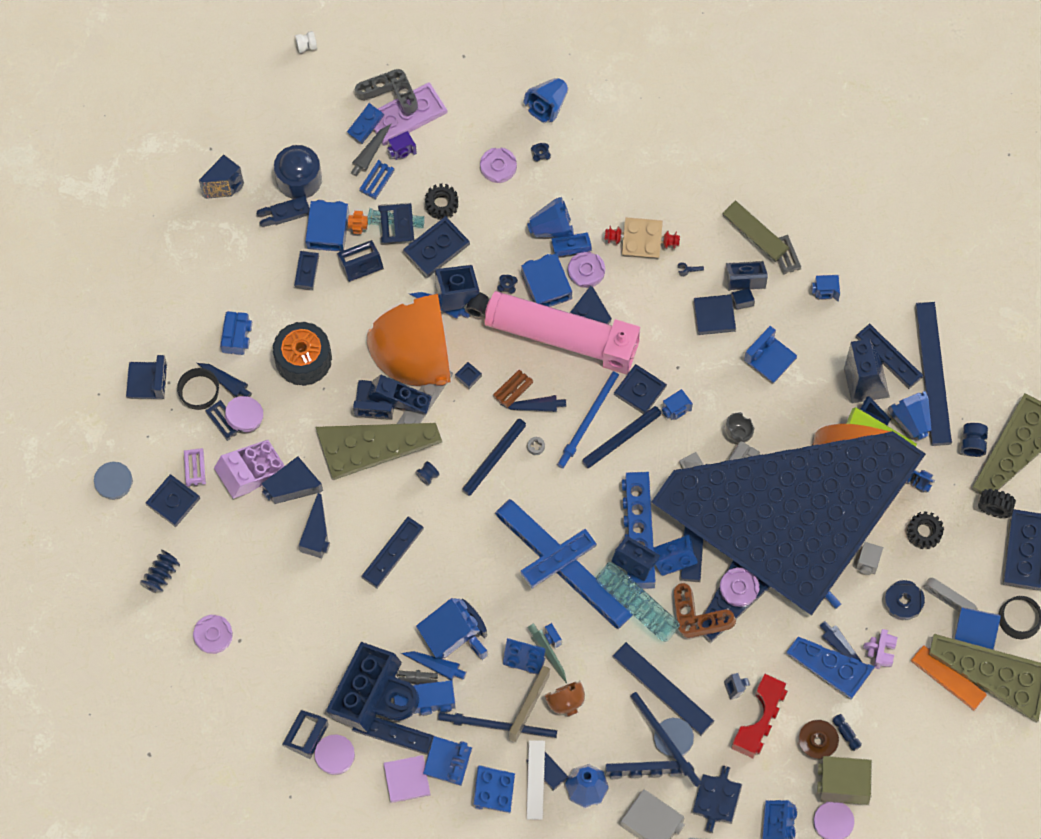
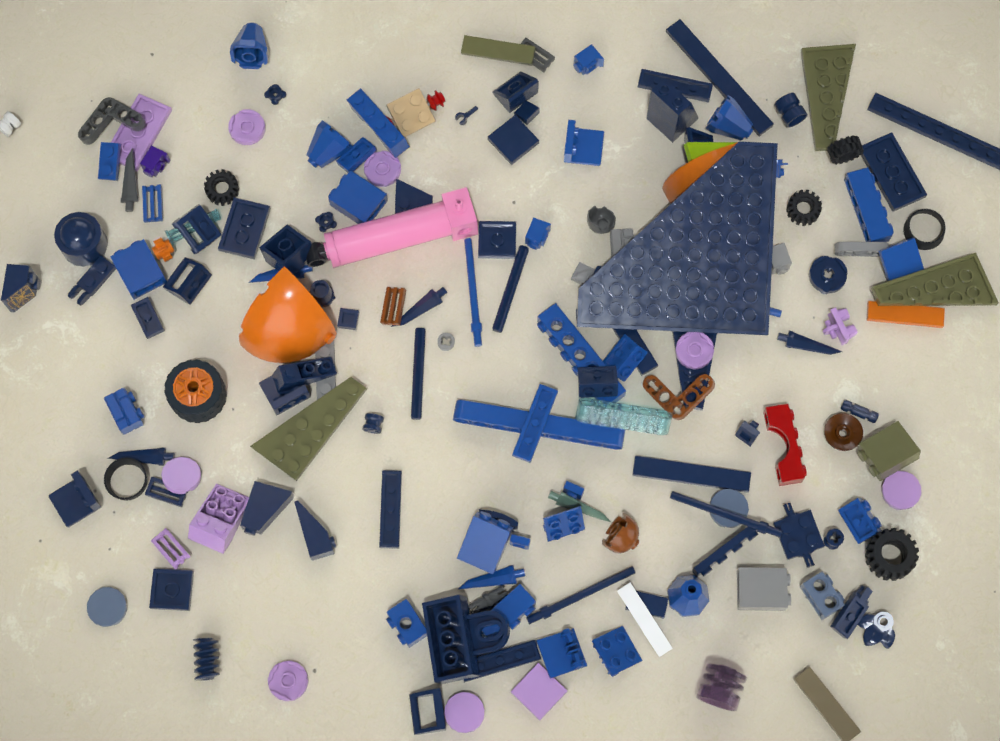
camera: 35 degrees left, 5 degrees up
(338, 640) = (402, 612): none -> blue brick
(461, 340) = (322, 293): none -> dark blue piece
(529, 704) = (596, 562): dark tan tile -> none
(607, 228) = (378, 122): none -> blue arch
(739, 817) = (837, 534): none -> dark blue bush
(836, 669) = (817, 366): blue wing -> none
(982, 565) = (868, 206): none -> blue brick

